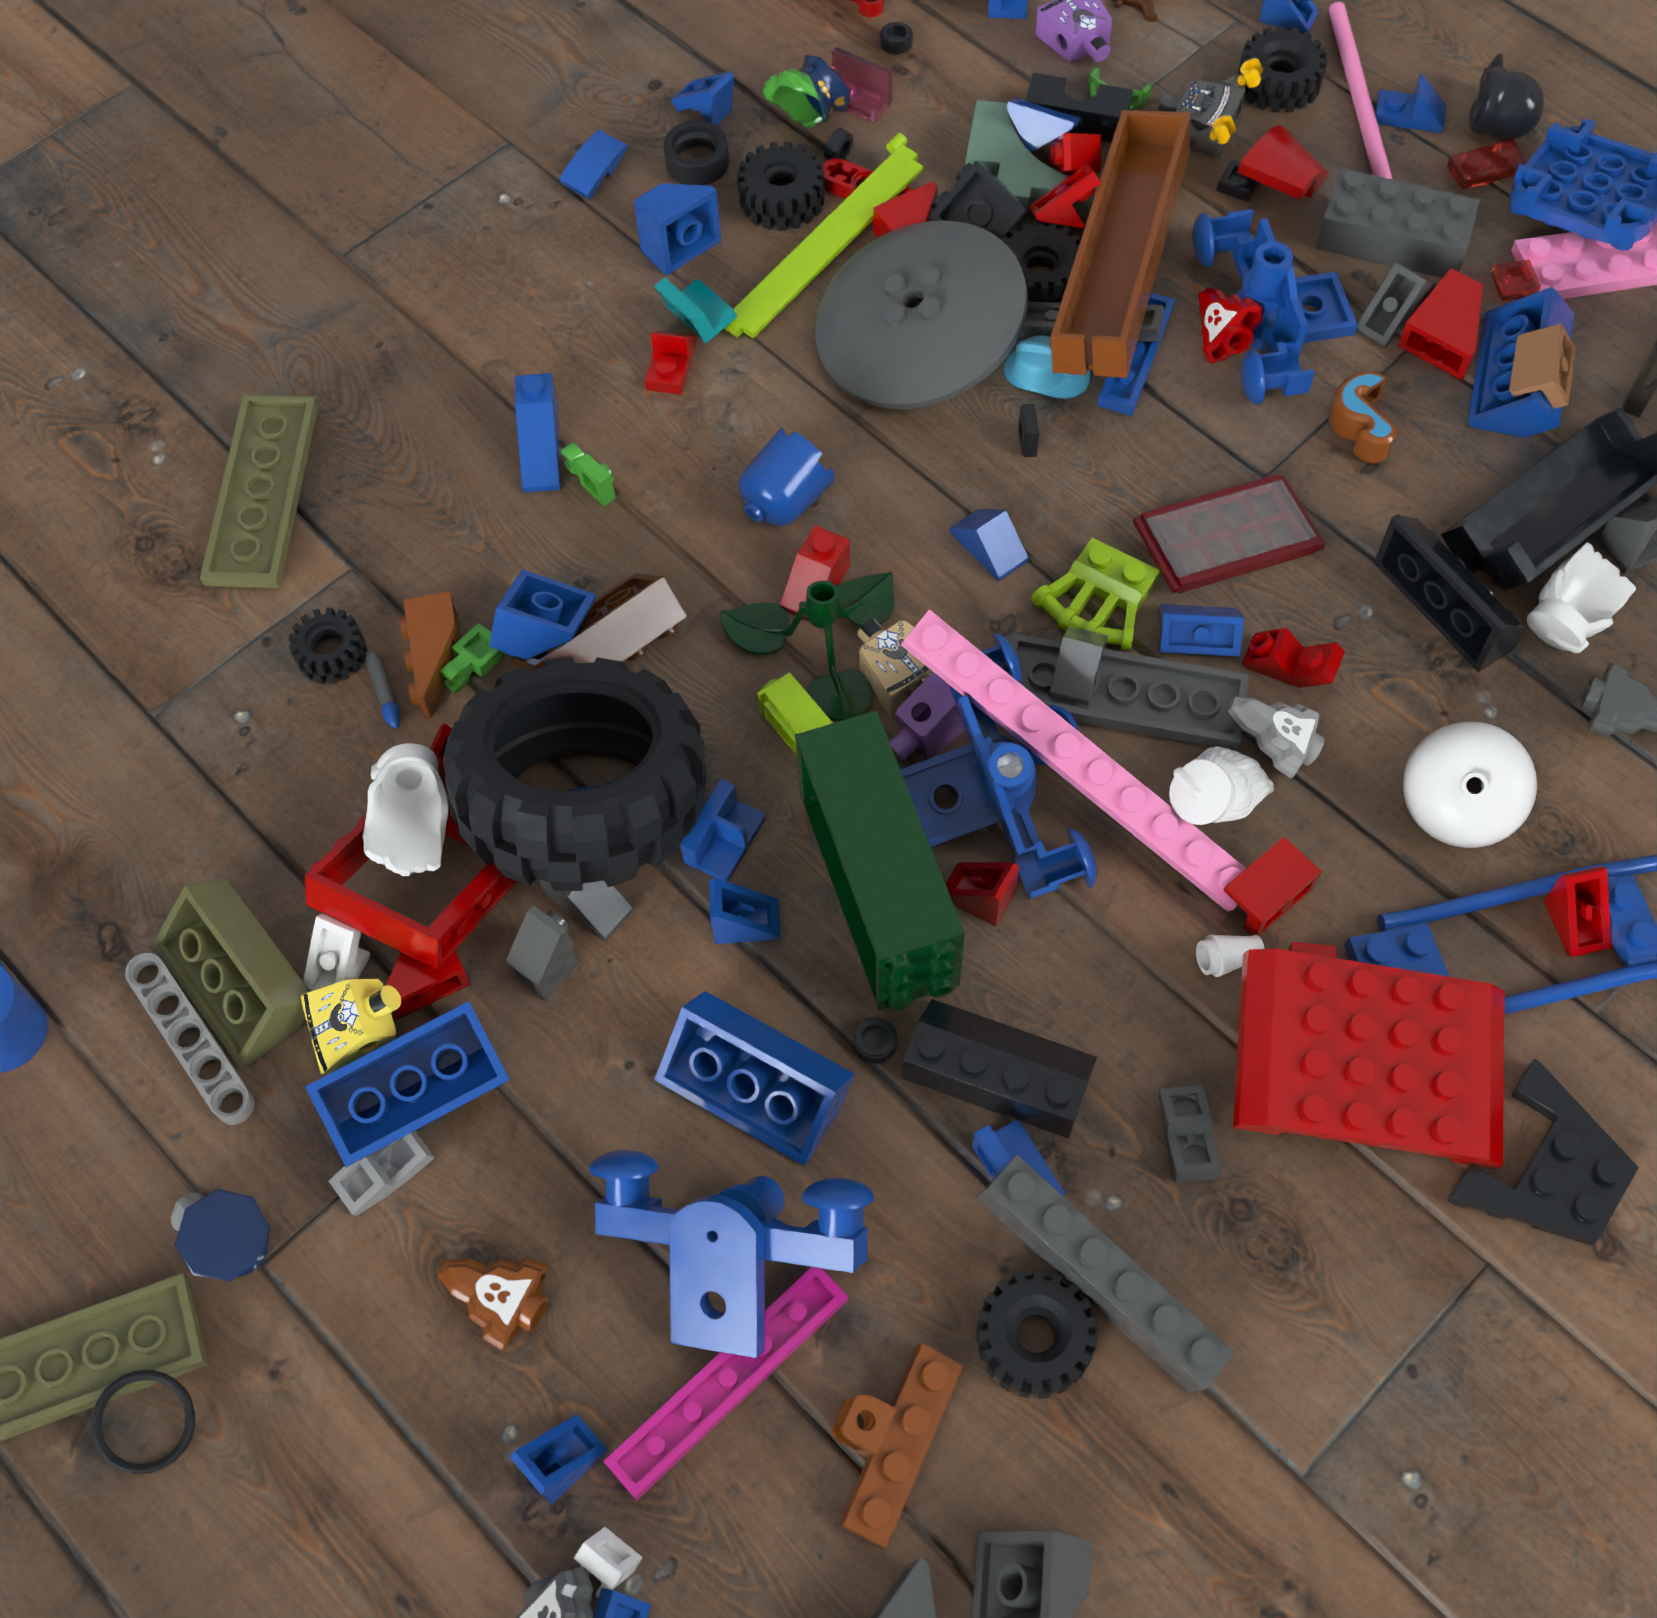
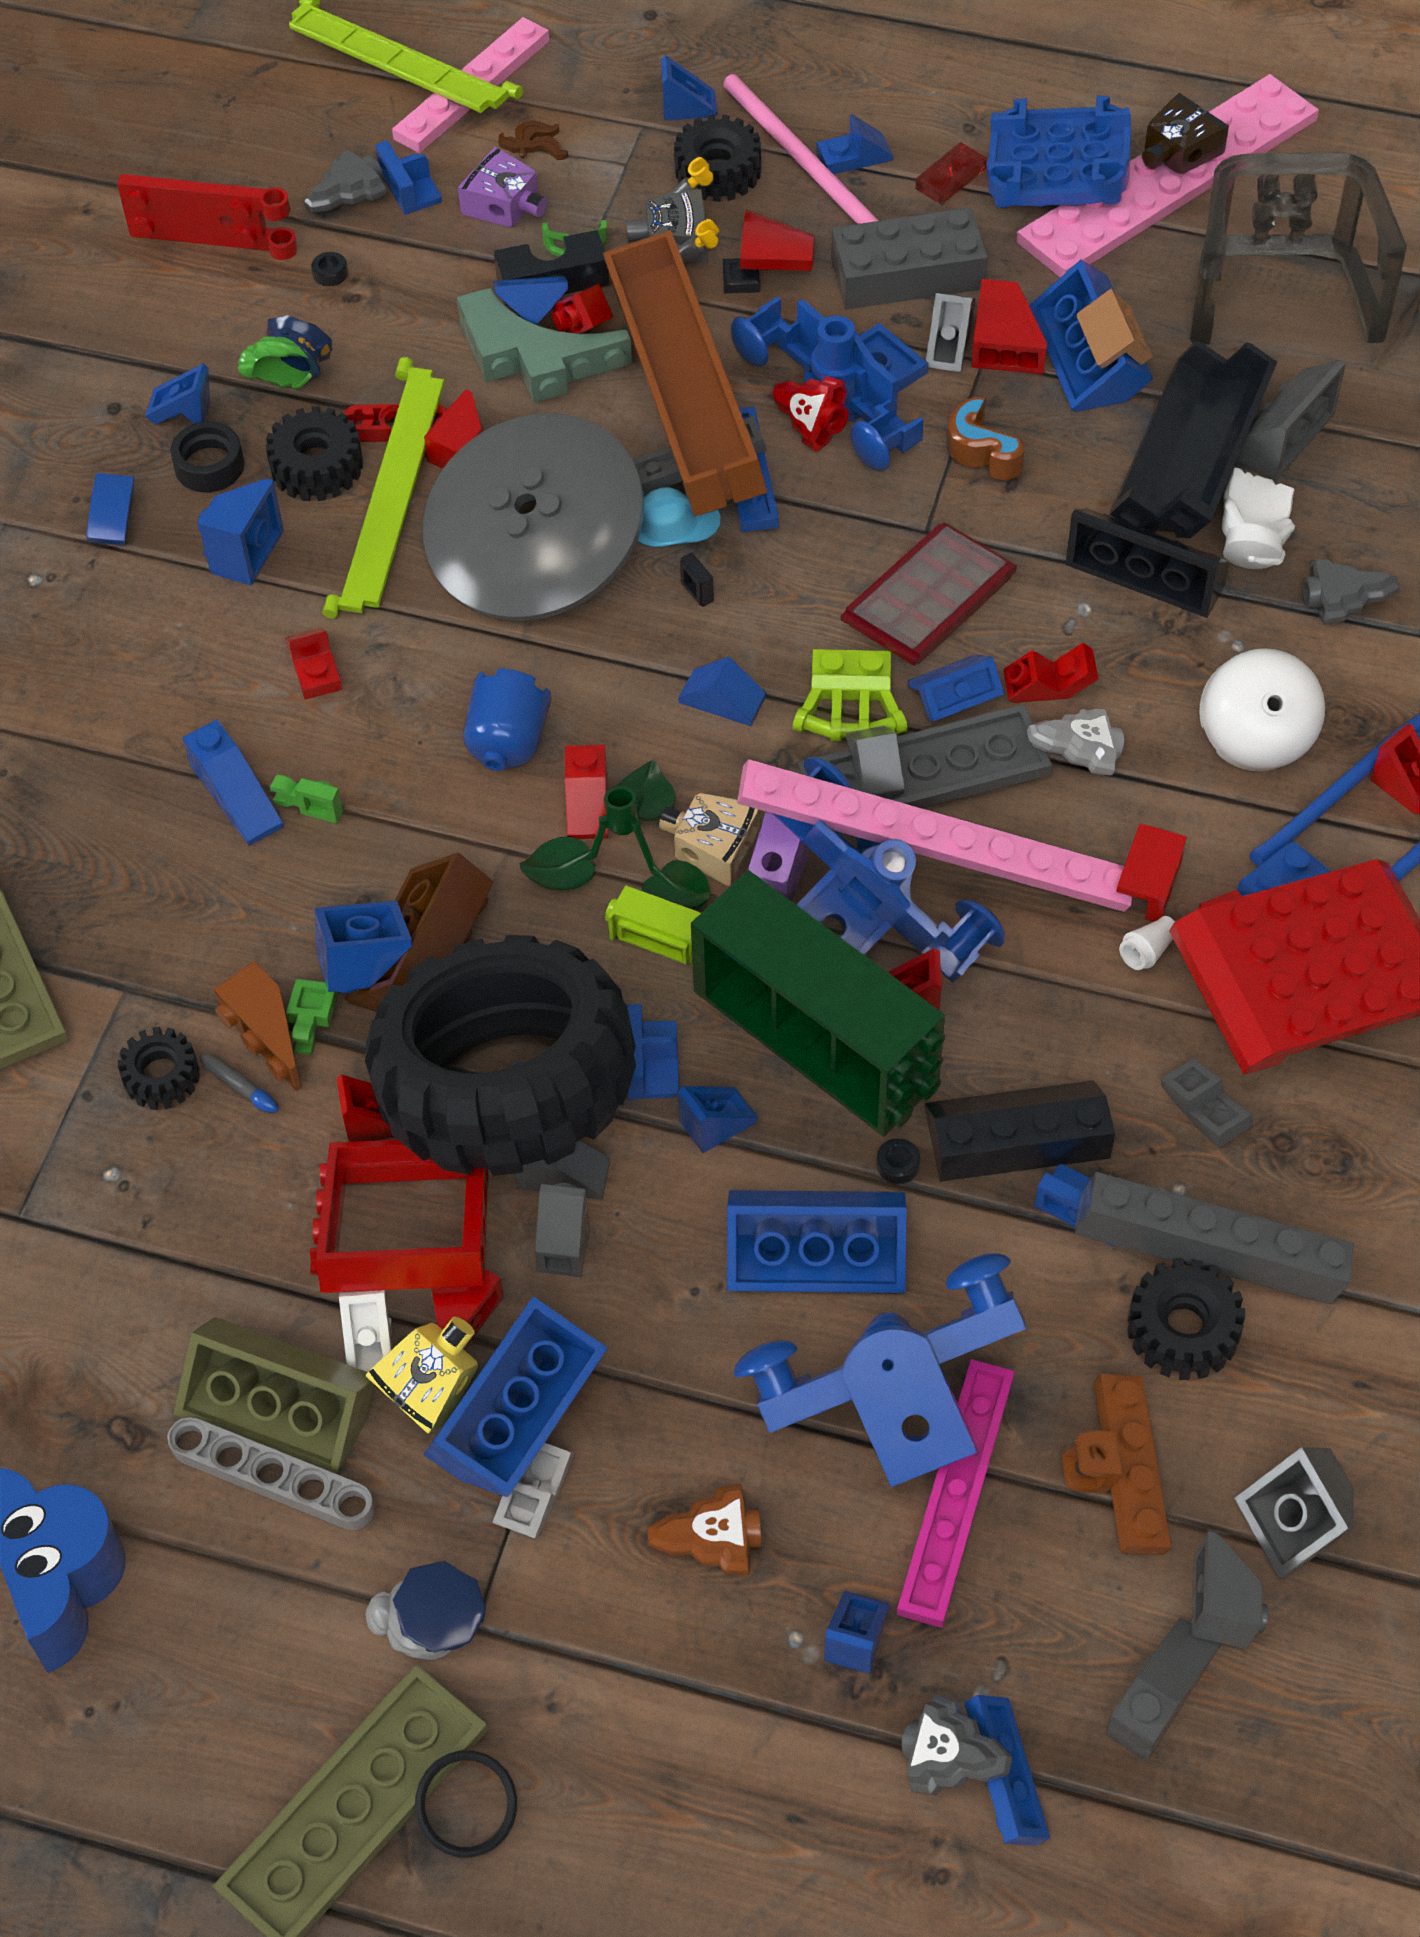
camera: 30 degrees left, 5 degrees down
(406, 810) = (366, 1160): white hair -> none
(607, 1559) = (952, 1681): white tile -> none
(697, 307) = (310, 601): teal panel -> none
(838, 145) = (345, 393): black tile -> none
(867, 83) = (337, 319): clear pink panel -> none
(980, 201) = (523, 390): black plate -> none
(1046, 248) = (623, 409): black tyre -> none
(1057, 203) = (597, 360): red slope -> none
(1218, 787) = (1060, 808): white hair -> none
(1506, 103) = (944, 113): black piece -> none
(1515, 279) = (1038, 266): clear red plate -> none

